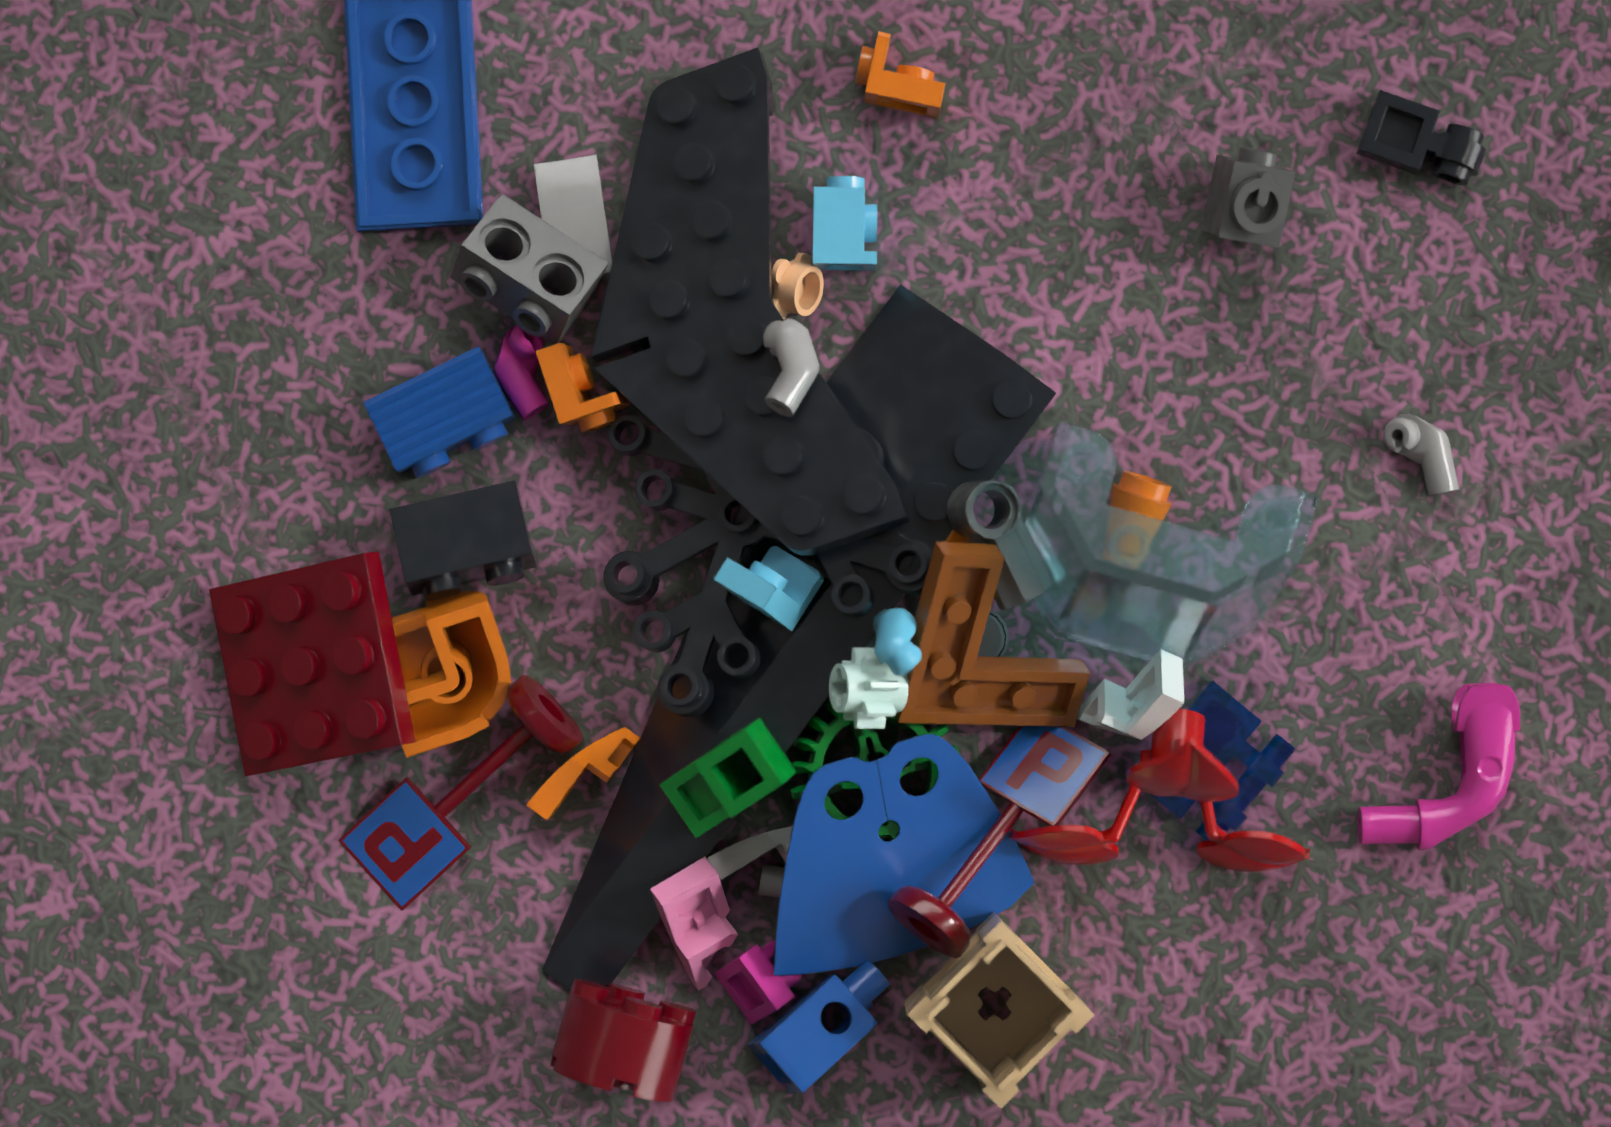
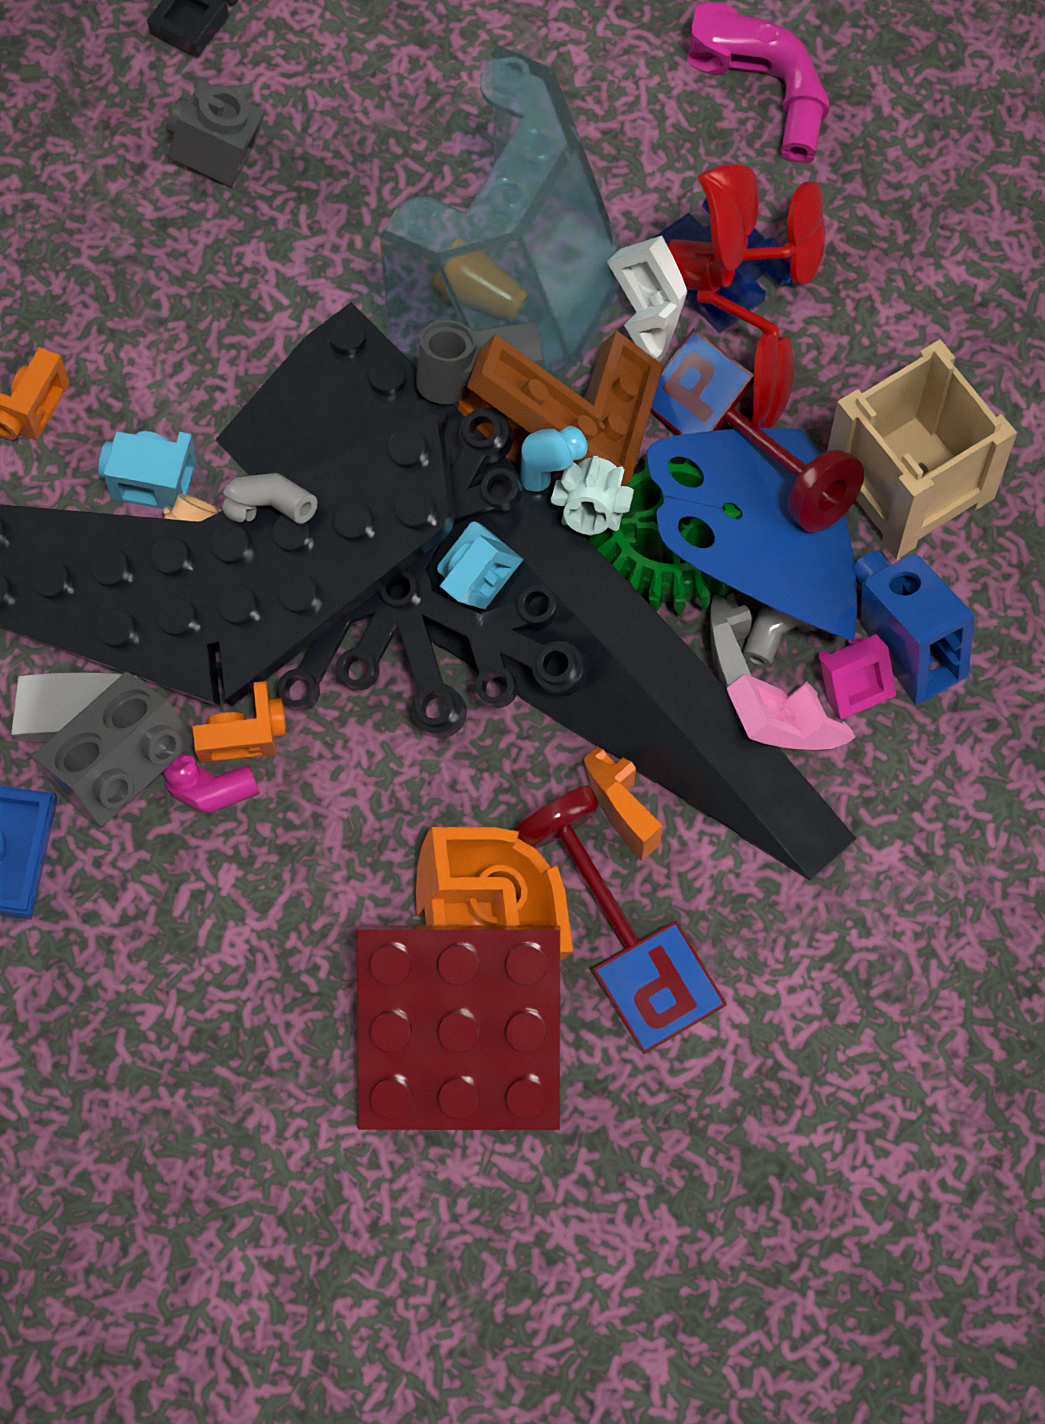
camera: 85 degrees left, 20 degrees down
(440, 413) = (232, 862): blue brick -> none
(463, 540) = (365, 858): black brick -> none
(622, 1041) = (896, 794): dark red brick -> none
(728, 778) = (647, 618): green brick -> none
(1426, 446) = (470, 48): light grey arm -> none

